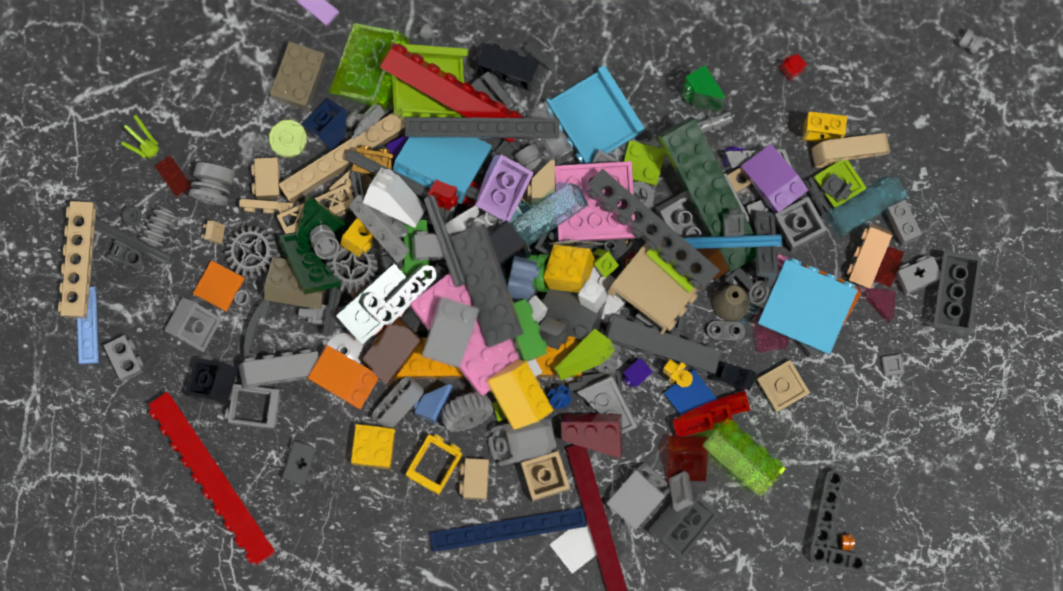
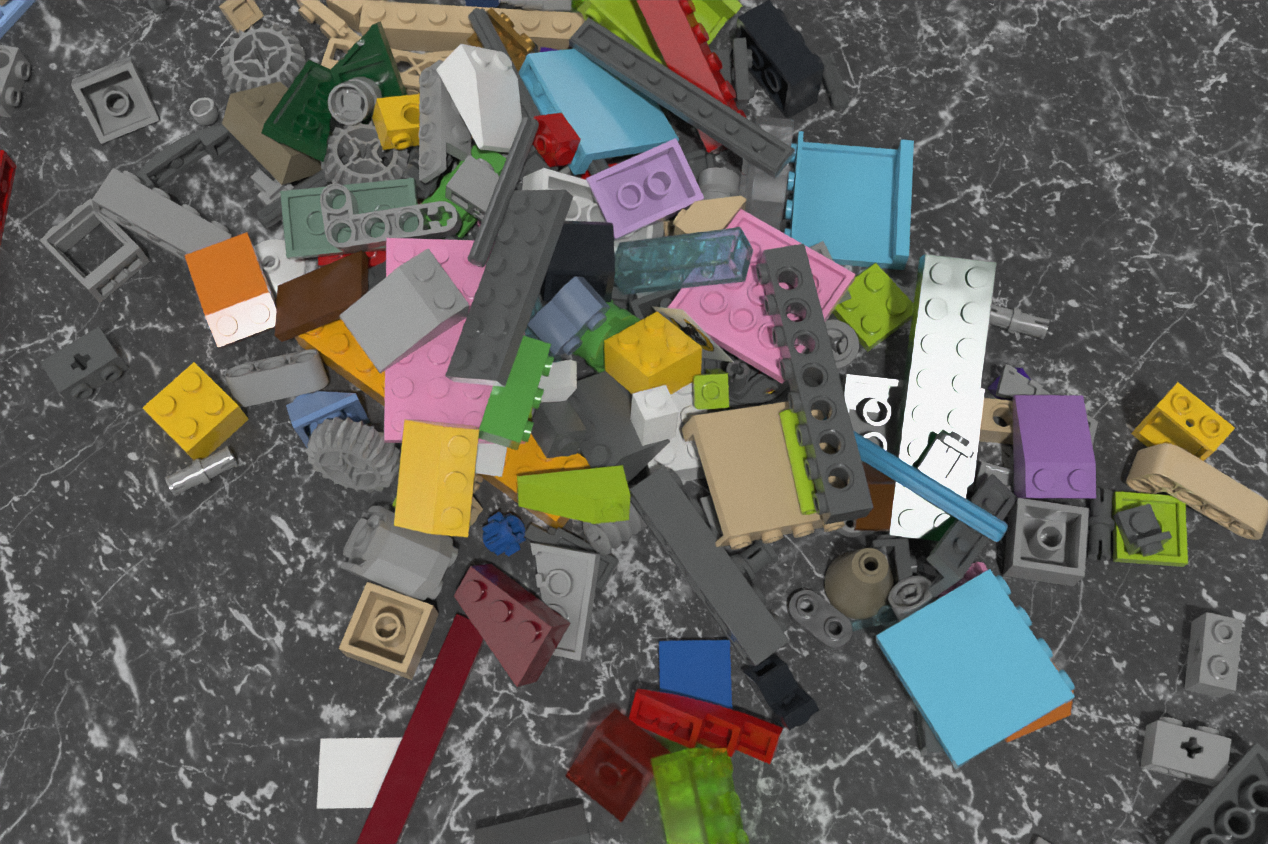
camera: 40 degrees right, 10 degrees down
(211, 382) = (65, 176): black brick -> none
(219, 286) = (190, 77): orange tile -> none
(398, 470) = (201, 471): none -> light grey pin
(425, 482) = (217, 483): yellow window -> none
(475, 479) = (292, 561): tan brick -> none
(508, 529) = (281, 671): dark blue tile -> none
(637, 374) = (640, 584): dark purple brick -> none
(639, 496) = (504, 766): light grey slope -> none
(678, 374) = (698, 625): yellow hips -> none
(681, 491) = (567, 807): light grey tile -> none
(703, 91) = (1032, 256): green slope -> none
(768, 339) = (877, 680): clear pink bracket -> none
(783, 386) = (848, 766): tan plate -> none
(793, 66) = (1189, 316): red brick -> none
(868, 206) = (1171, 591): clear light blue brick -> none
(869, 255) = (1125, 664): light nougat wedge -> none
(883, 301) = (1098, 751): clear pink slope -> none
(889, 267) = (1142, 705): clear red tile -> none

